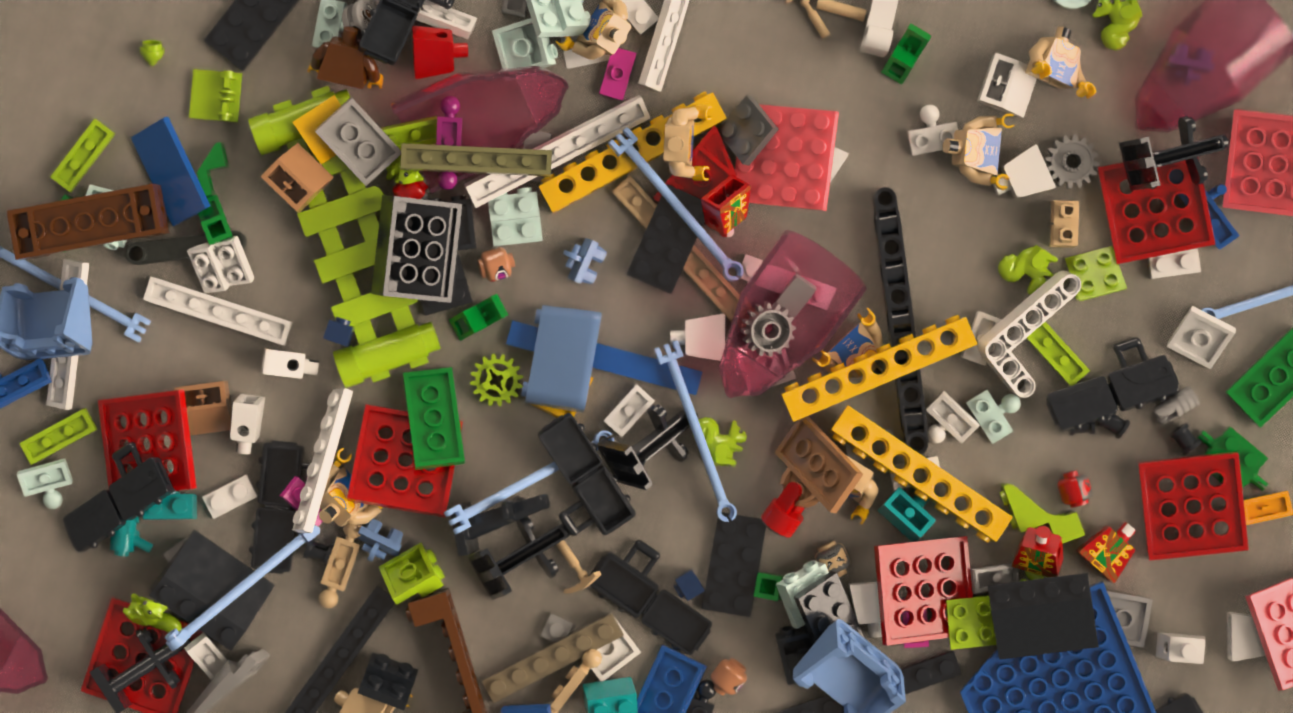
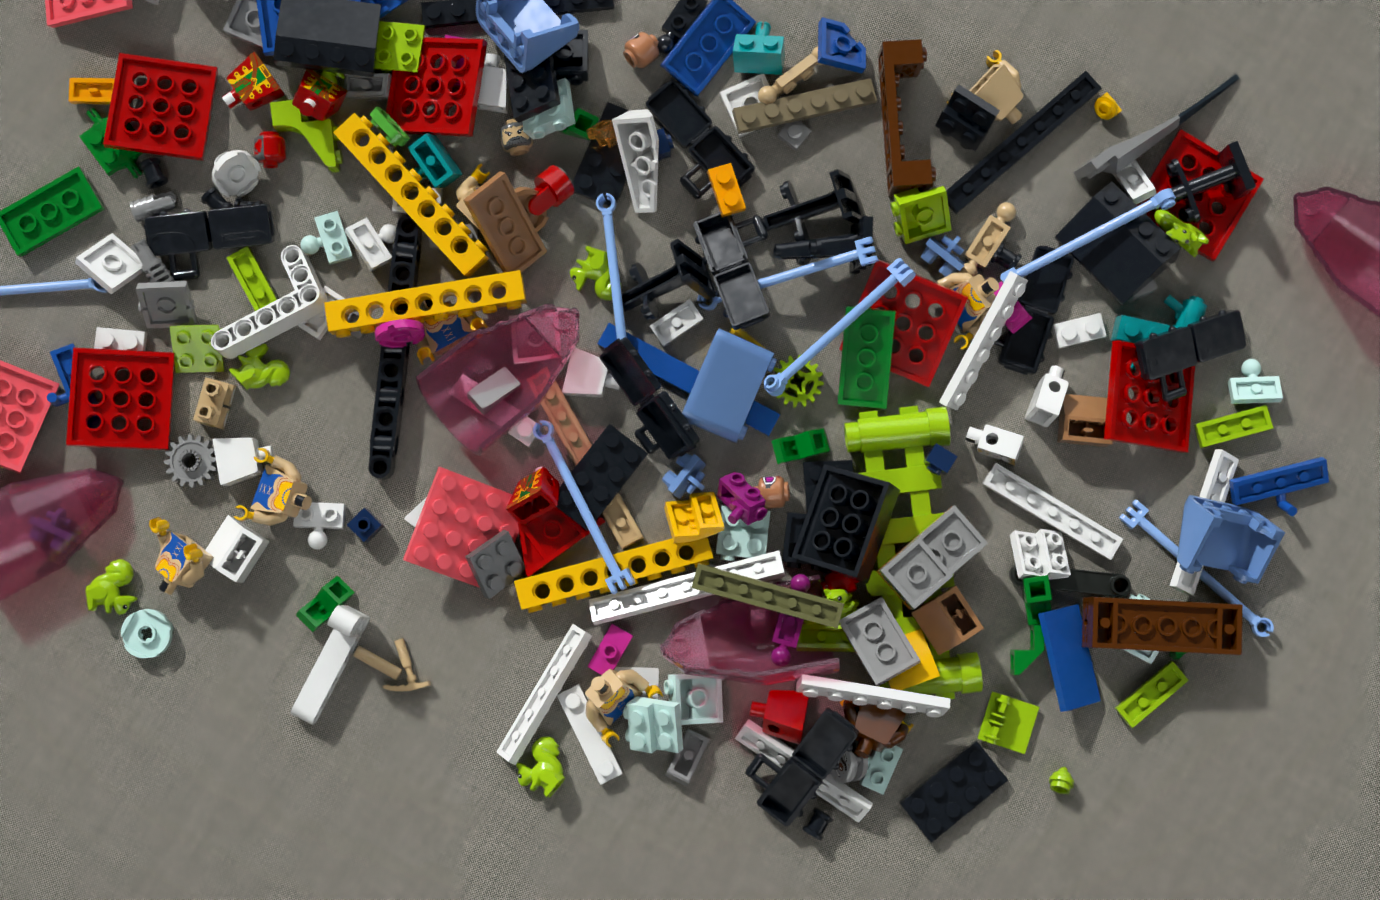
camera: 170 degrees left, 5 degrees down
(325, 233) = (932, 558): none -> light grey piece
(361, 86) = (867, 694): none -> white plate
(419, 504) = (899, 272): none -> light blue hinge
(523, 249) = (741, 498): none -> magenta brick
(566, 221) = (694, 517): none -> yellow slope
(574, 563) = (763, 190): tan piece -> none
(610, 553) = (726, 190): none -> light orange plate
(626, 312) = (657, 413): none -> black piece
(679, 142) = (564, 566): tan torso -> none
(703, 565) = (639, 154): none -> white wedge
(744, 582) = (603, 133): none -> clear orange tile
(780, 333) = (531, 374): light grey gear -> none
(877, 141) = (373, 528): none -> dark blue plate
(896, 331) = (399, 332): none -> dark pink plate
(965, 541) = (385, 122): none -> bright green plate
(1102, 457) = (235, 173): none -> white tile
(1135, 309) = (166, 304): none -> light grey plate
(1142, 163) = (119, 440): black piece -> none
(1154, 339) = (151, 264): none -> light grey hinge

